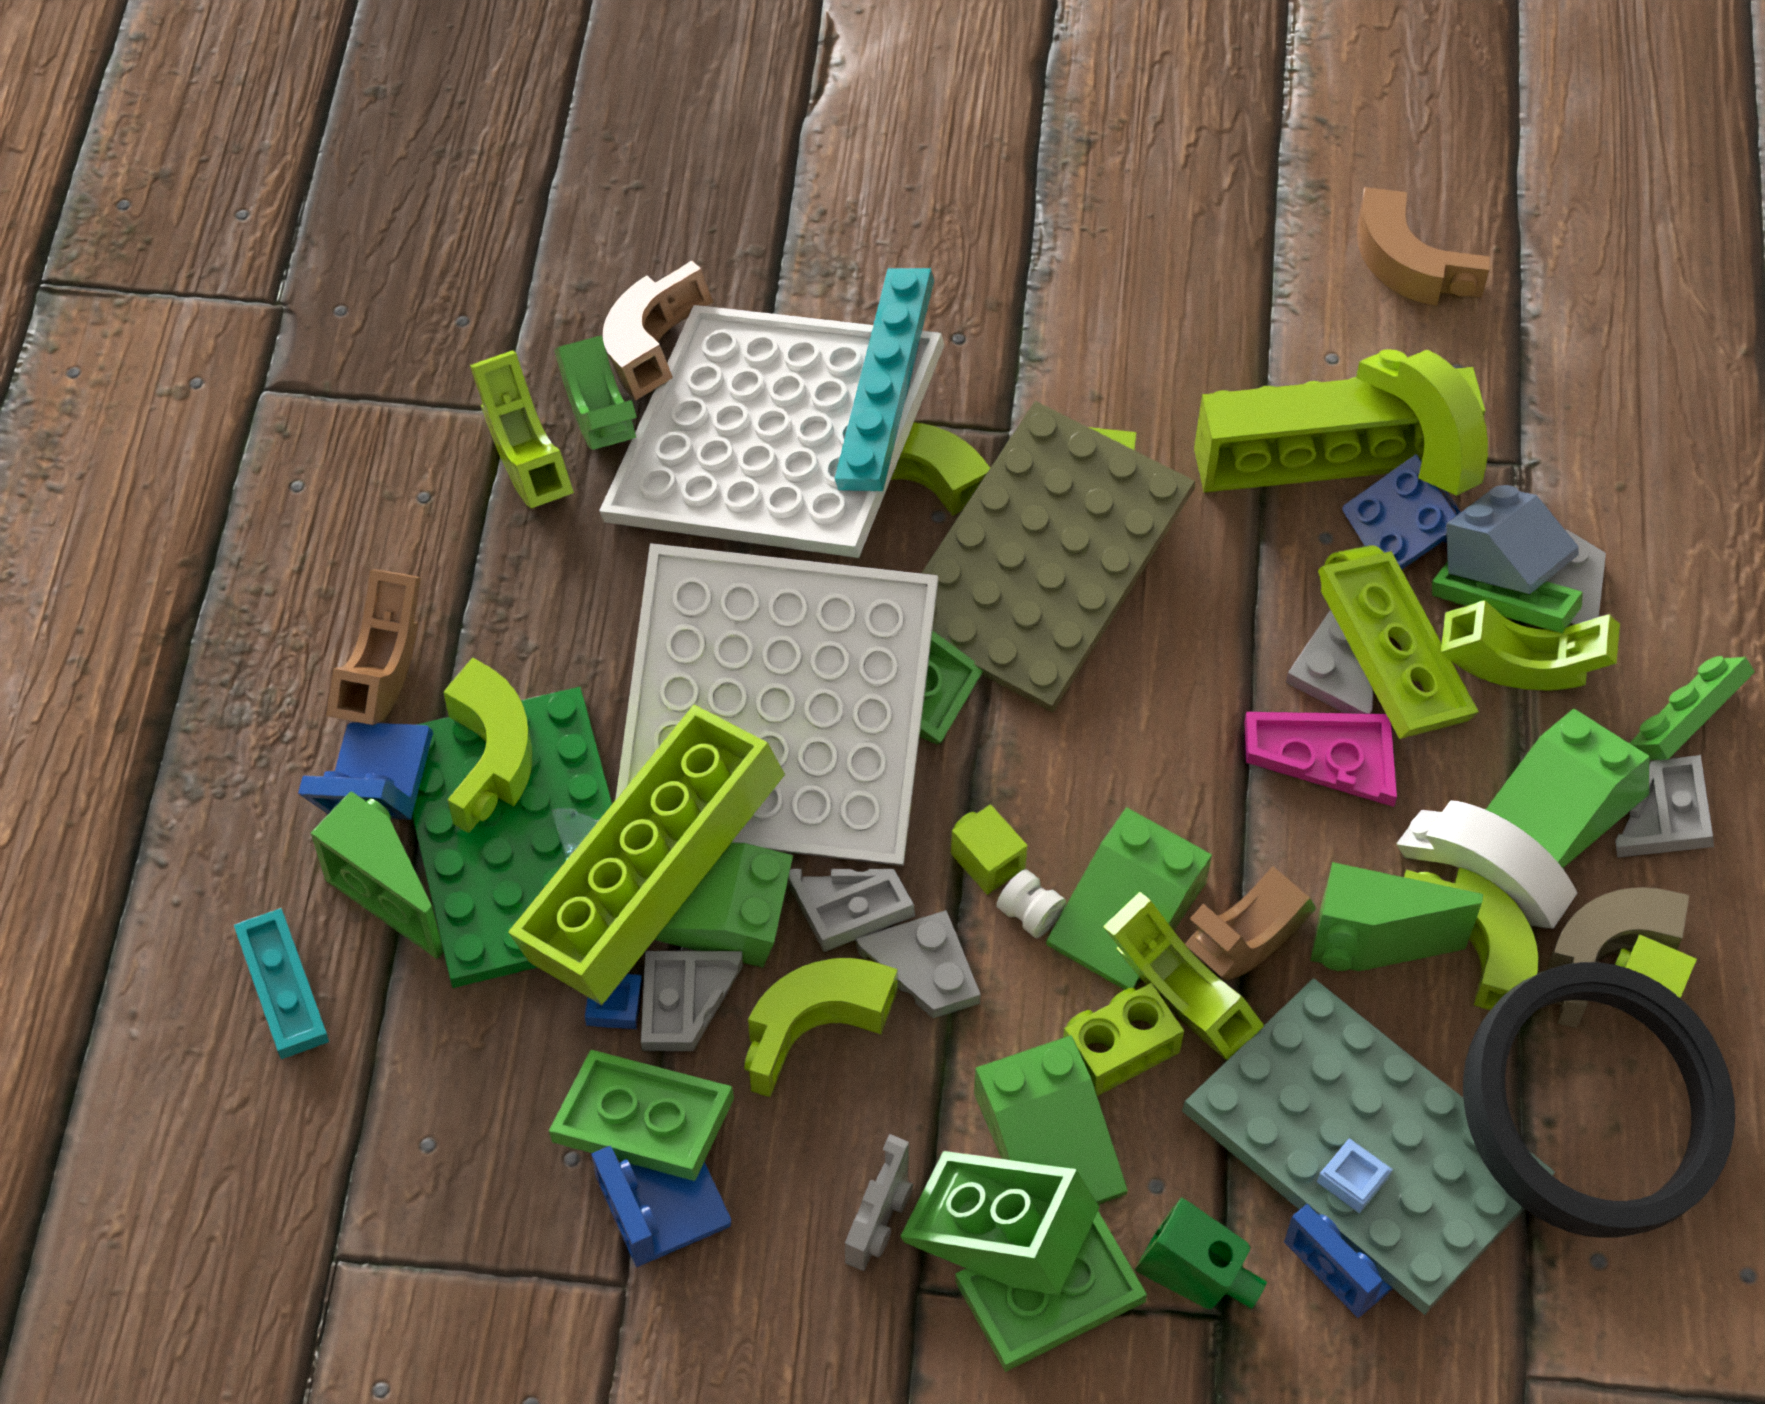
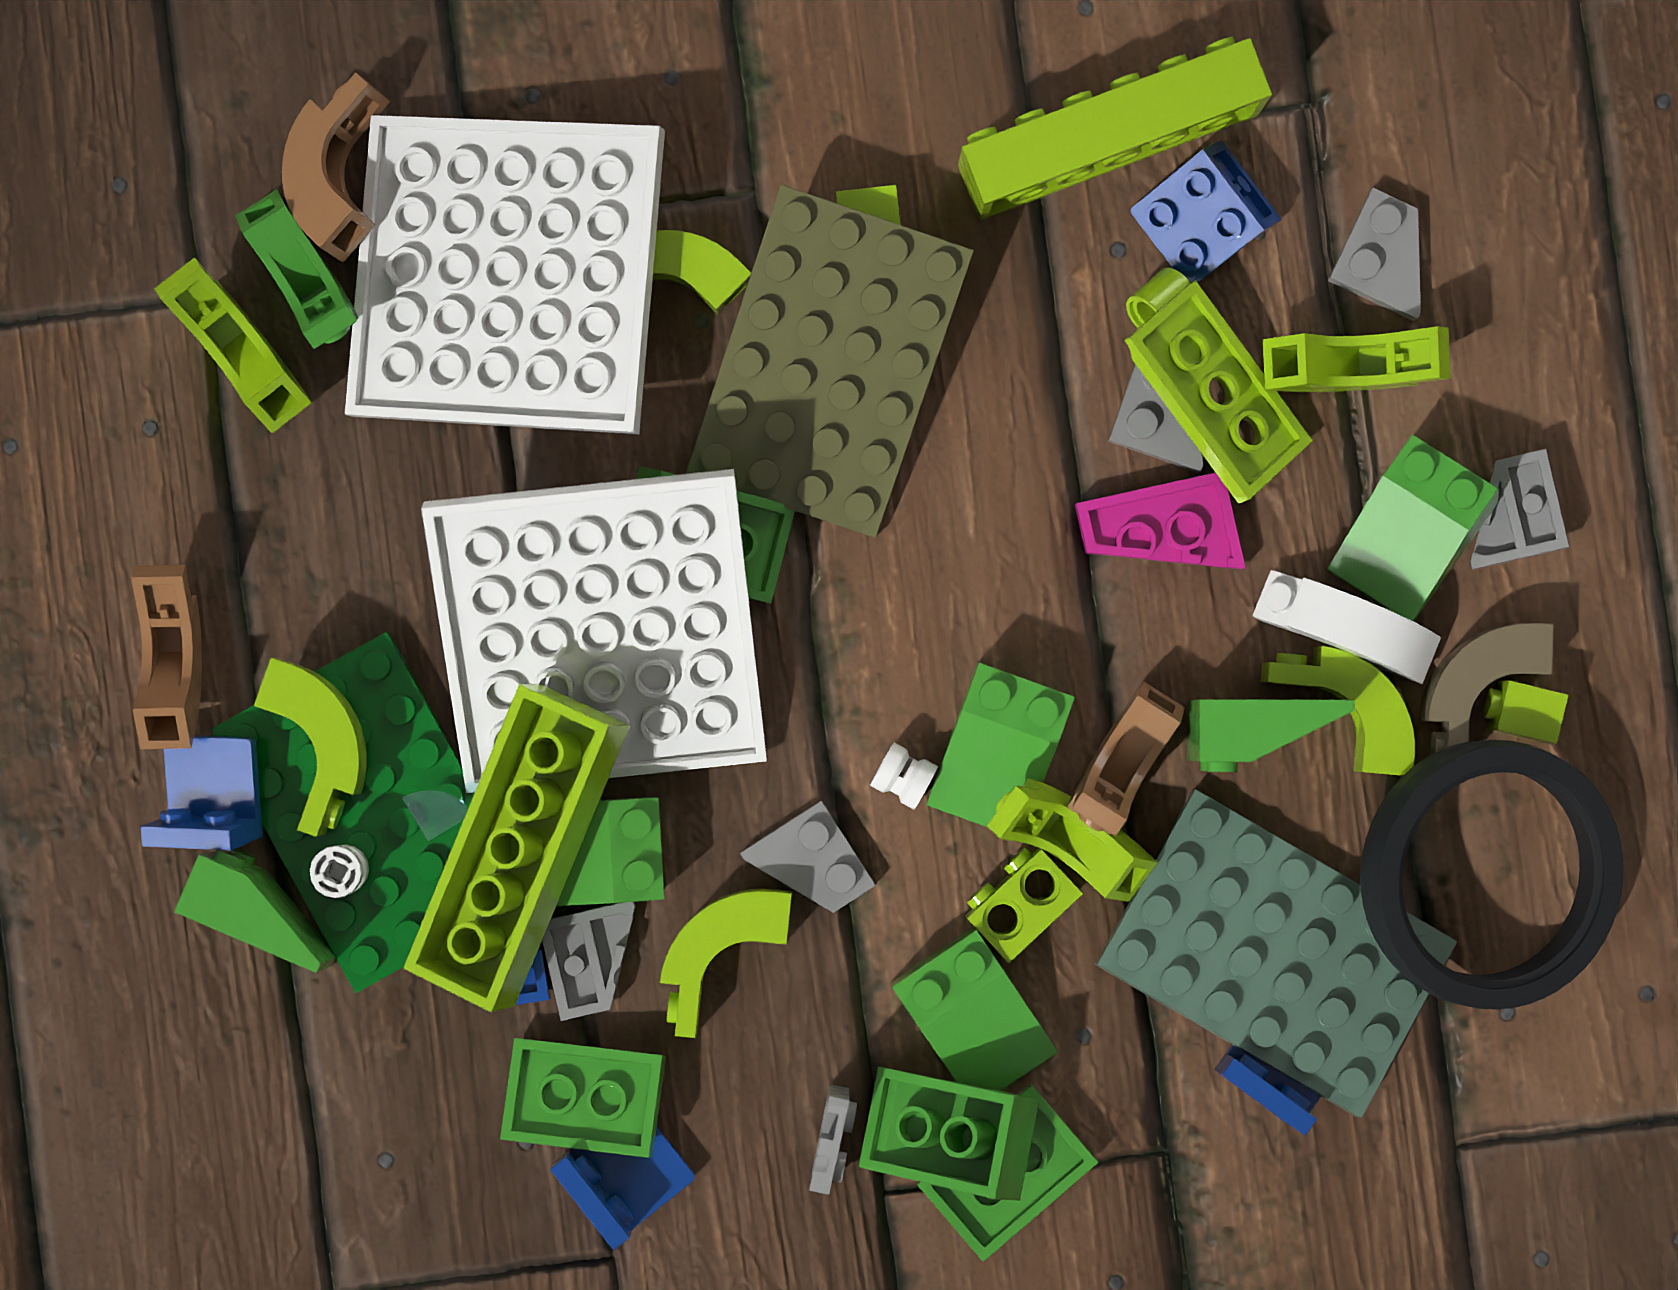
camera: 15 degrees left, 30 degrees up
(281, 983) = (191, 1037): teal plate -> none
(482, 860) = (348, 867): none -> white wheel
(850, 903) = (723, 815): light grey wing -> none
(884, 380) = (612, 202): teal plate -> none
(988, 848) = (846, 723): lime brick -> none
(1200, 1259) = (1140, 1121): green torso -> none
(1354, 1175) = (1272, 1011): light blue tile -> none
(1447, 412) = (1223, 110): lime arch -> none
(1508, 541) = (1318, 238): sand blue slope -> none
(1546, 607) = (1323, 295): bright green plate -> none
(1692, 706) = (1529, 387): bright green plate -> none

